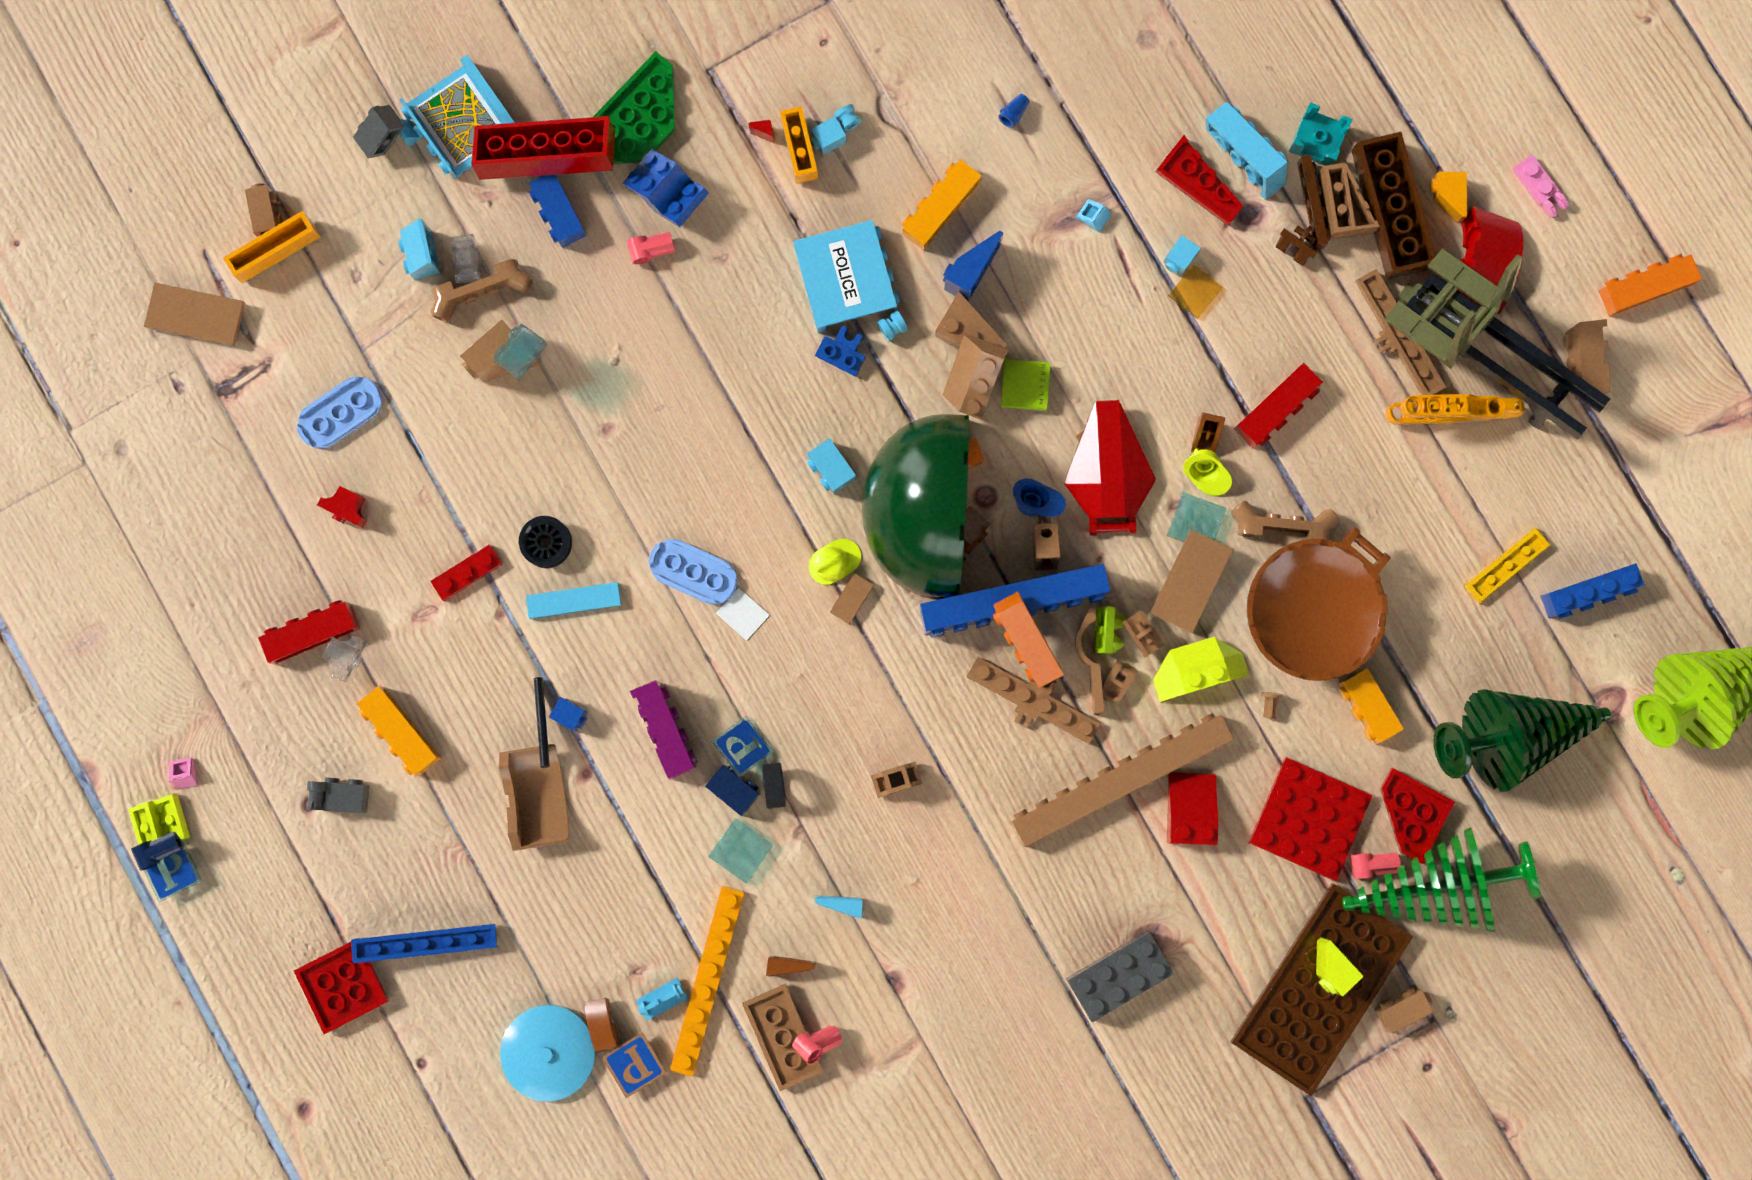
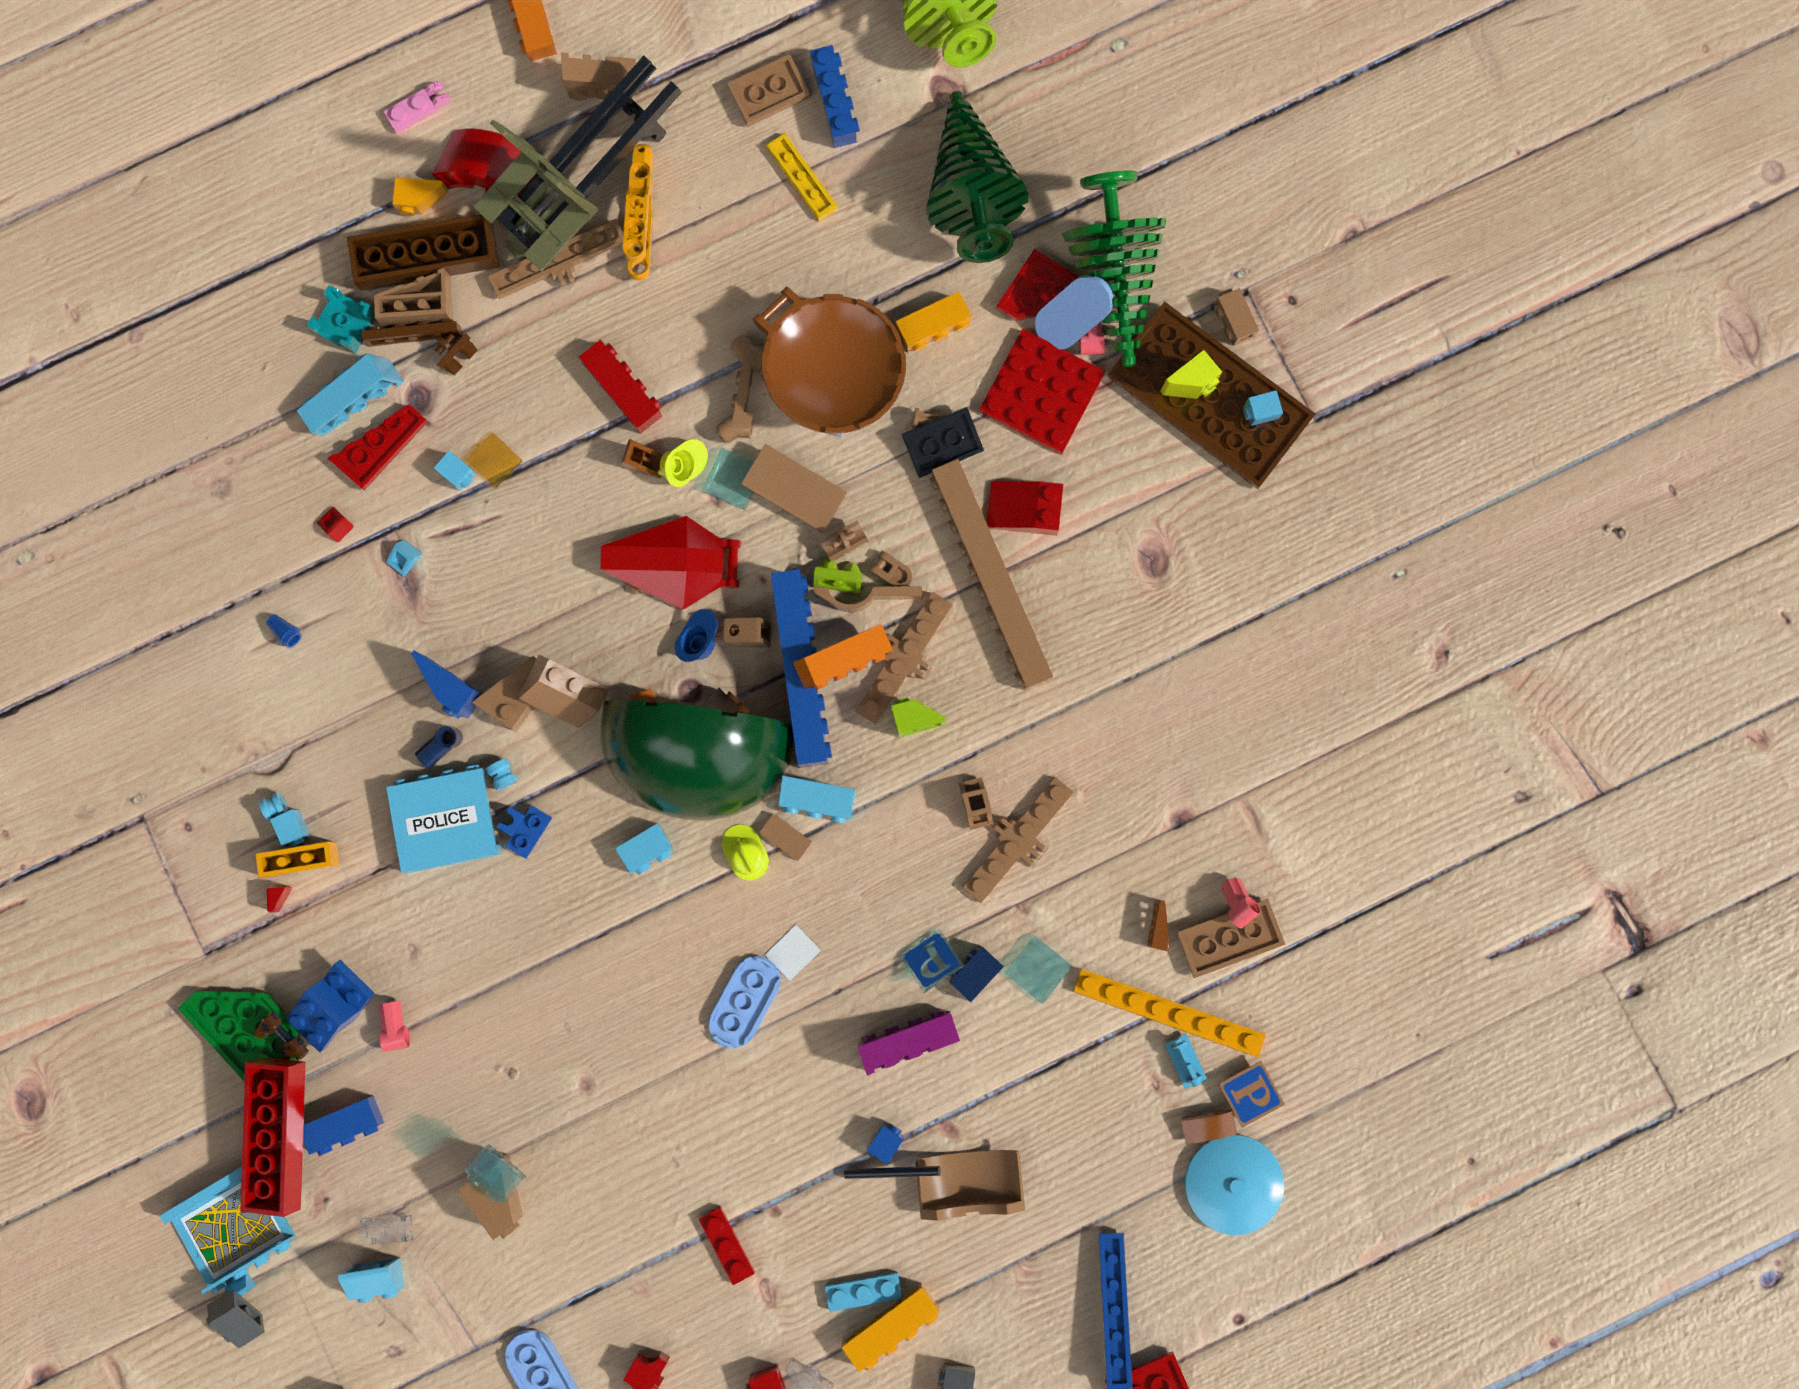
camera: 90 degrees left, 0 degrees up
(430, 703) = (863, 1291): none -> medium azure plate
(449, 296) = (408, 1184): medium nougat plate -> none
(525, 537) = (685, 1174): black wheel -> none
(573, 600) = (765, 1131): medium azure tile -> none
(626, 158) = (293, 1047): none -> reddish brown piece
(773, 785) = (974, 930): black tyre -> none
(846, 905) = (1100, 864): medium azure slope -> none
(864, 823) = (1018, 840): none -> medium nougat hinge
(889, 625) = (816, 799): none -> medium azure slope
(913, 264) = (437, 747): none -> dark blue piece
(941, 205) = (377, 714): light orange brick -> none
(975, 712) = (914, 717): none -> lime slope
(1025, 385) = (576, 641): lime slope -> none
(1119, 976) = (1187, 592): dark grey brick -> none
(1120, 148) = (335, 524): none -> red slope
(1198, 667) = (883, 489): neon yellow wedge -> none
(1250, 723) = (942, 441): none -> black tile
(1311, 1041) = (1263, 408): none -> medium azure brick
(1392, 845) = (1074, 311): none -> light blue tile
(1592, 526) = (768, 90): none -> medium nougat plate

